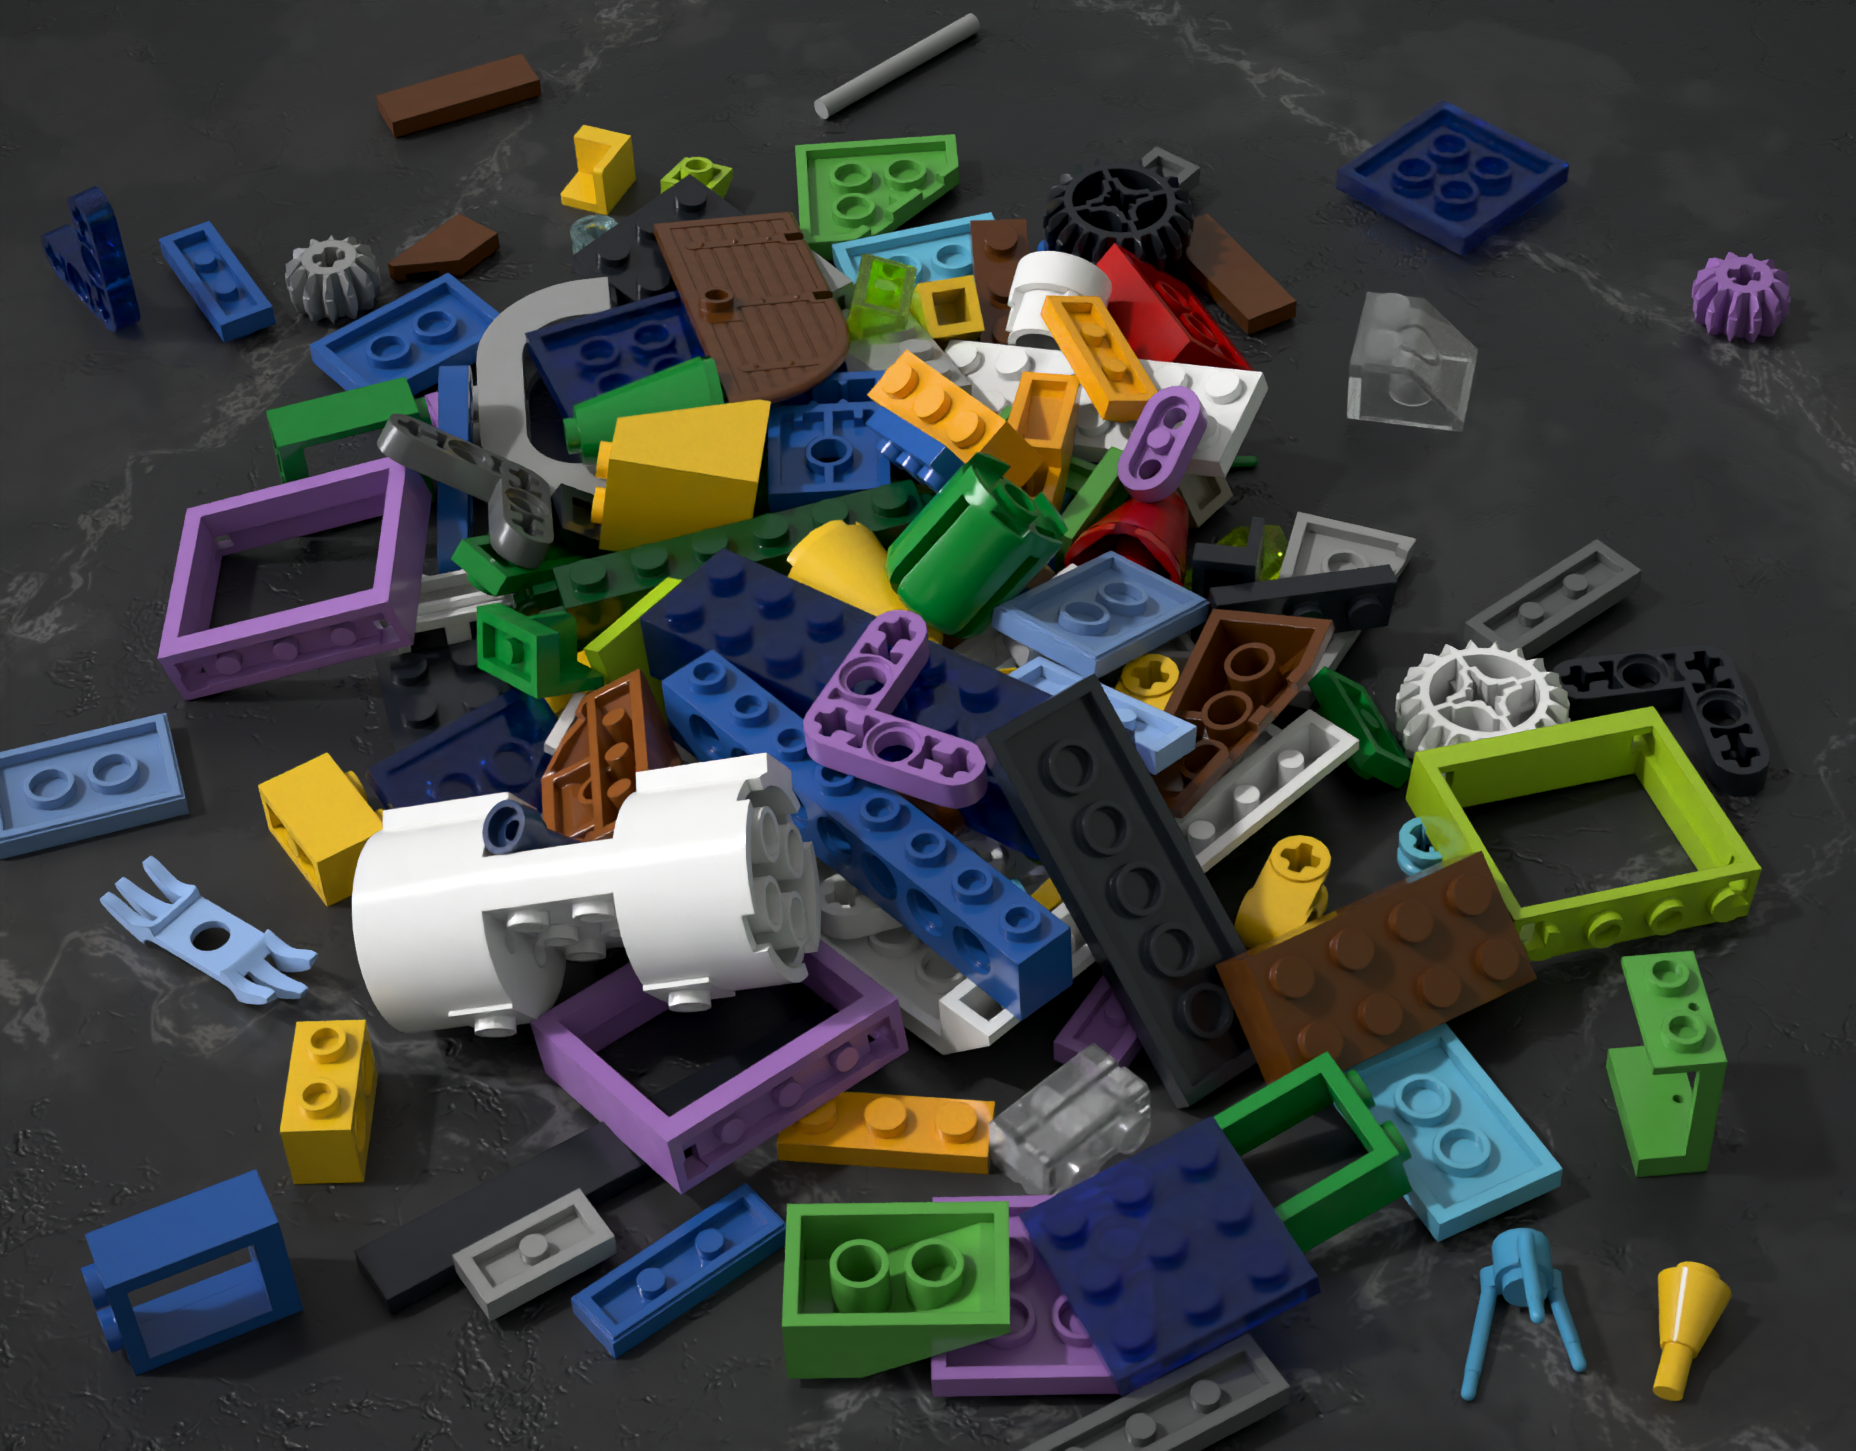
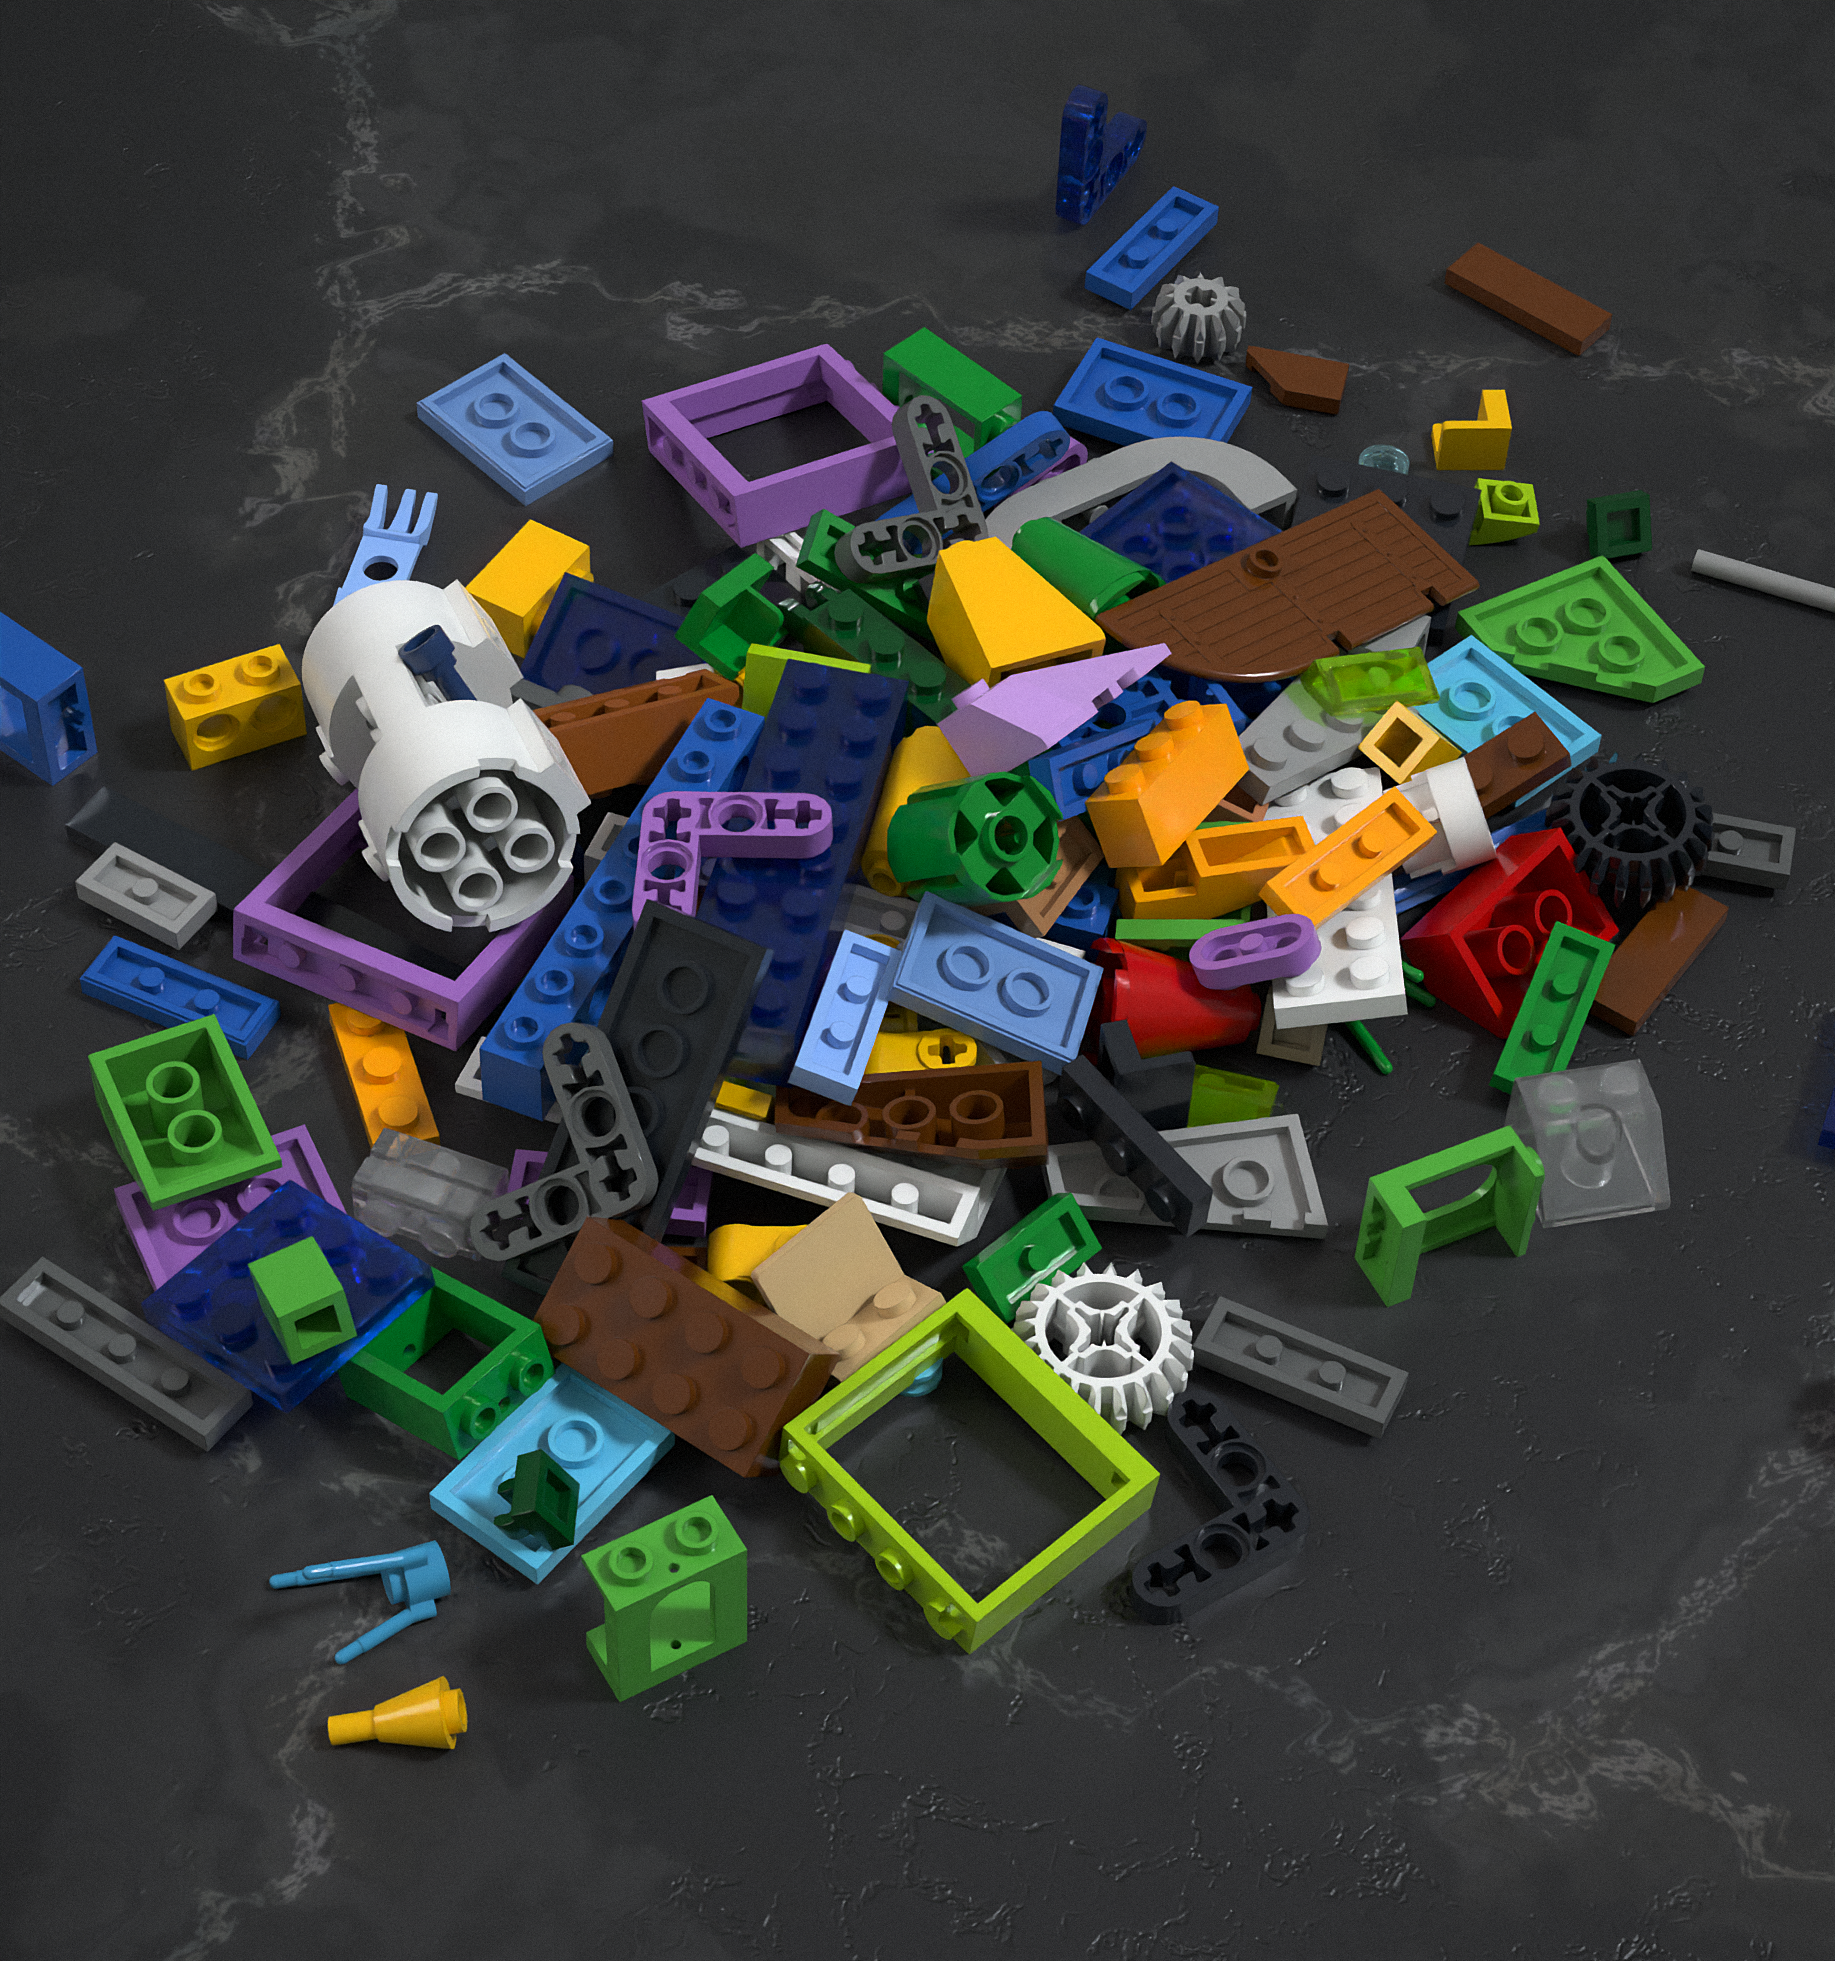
camera: 60 degrees right, 5 degrees up
(762, 129) = (1619, 524): none -> dark green tile
(854, 452) = (1038, 708): none -> lavender wedge
(1176, 958) = (593, 1175): none -> dark grey beam
(1236, 1205) = (302, 1300): none -> bright green brick
(1270, 338) = (1553, 1006): none -> green plate
(1375, 839) = (844, 1286): none -> tan bracket
(1461, 464) = (1398, 1231): none -> bright green panel
(1511, 1124) = (541, 1502): none -> dark green tile

